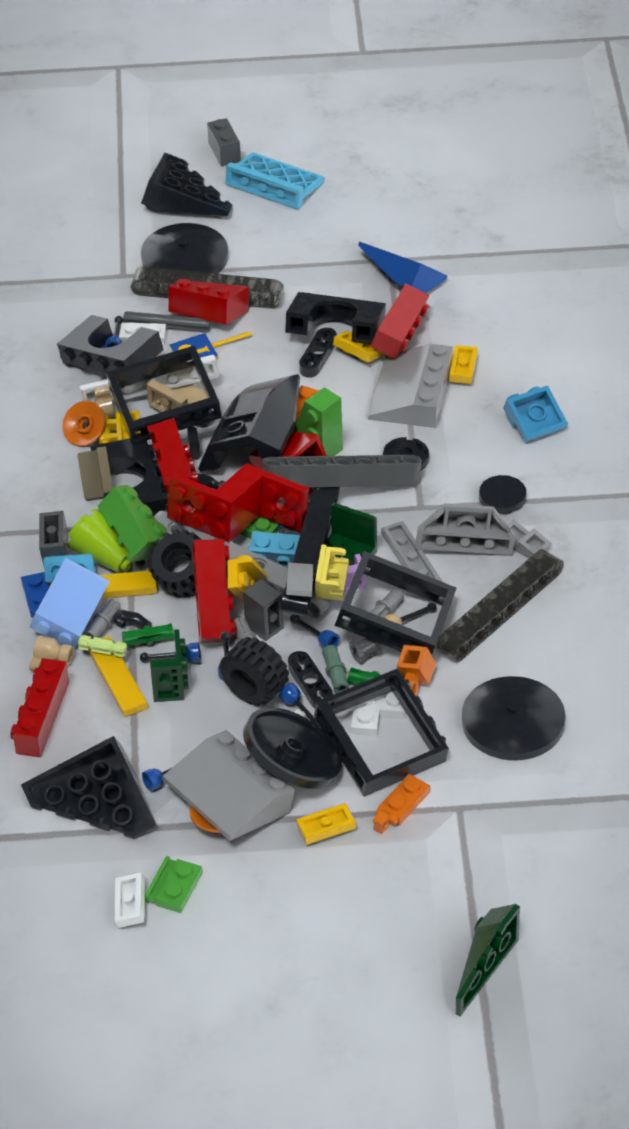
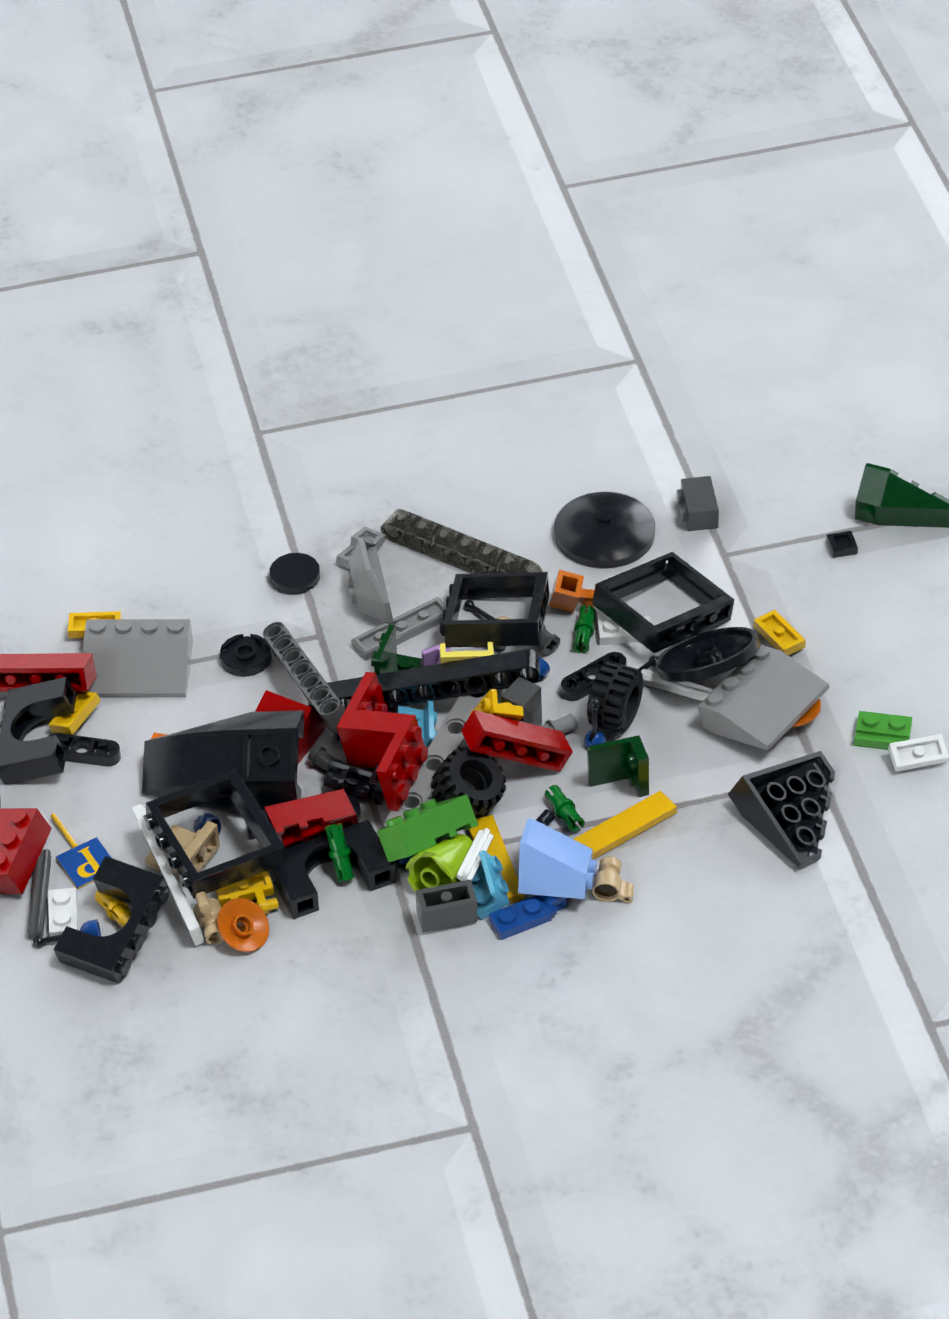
camera: 100 degrees left, 0 degrees up
(40, 708) = (694, 867): red brick -> none
(95, 473) = (334, 885): dark tan panel -> none
(100, 560) = (472, 860): none -> white axle
(102, 645) = (595, 833): yellowish green axle -> none
(141, 469) = (339, 852): none -> green pin
(153, 778) = (756, 764): blue hinge -> none
(192, 652) = (580, 771): hinge -> none
(299, 579) = (515, 649): light grey slope -> none
(323, 416) = (236, 689): bright green wedge -> none
(335, 668) = (576, 657): sand green pin -> none
(400, 803) = (743, 592): orange hinge -> none
(448, 903) = (842, 544): none -> black tile
(528, 790) = (698, 503): none -> dark grey brick
(535, 413) = (172, 557): dark azure plate -> none

